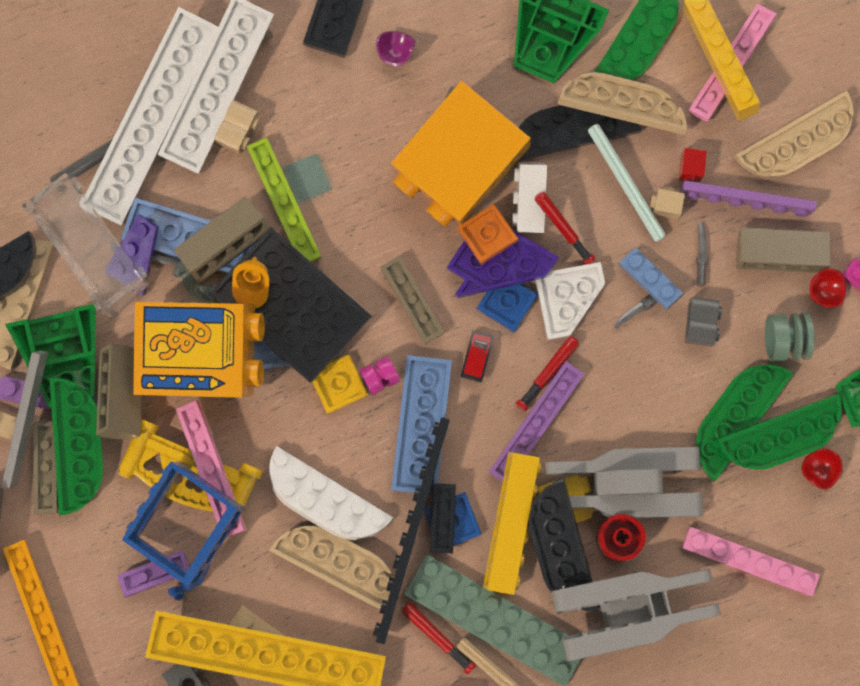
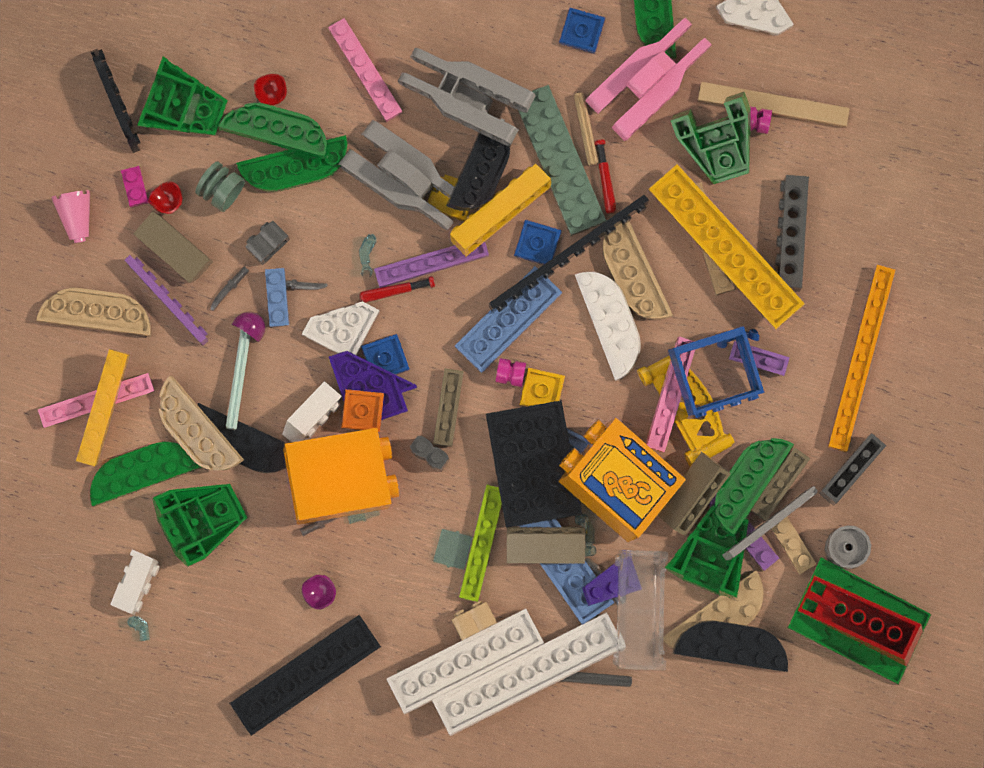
camera: 135 degrees left, 0 degrees up
(250, 283) = (549, 494): light orange piece -> none
(401, 243) = (434, 456): none -> dark grey brick
(442, 518) = (542, 247): black tile -> none
(477, 356) = (435, 335): slope -> none
(563, 226) = (308, 377): red piece -> none
(607, 386) = (364, 251): none -> clear light blue arm
(627, 526) = (432, 137): red brick -> none
(653, 235) = (251, 324): none -> magenta helmet
(667, 203) = (223, 339): tan brick -> none
(692, 165) = (185, 350): red brick -> none

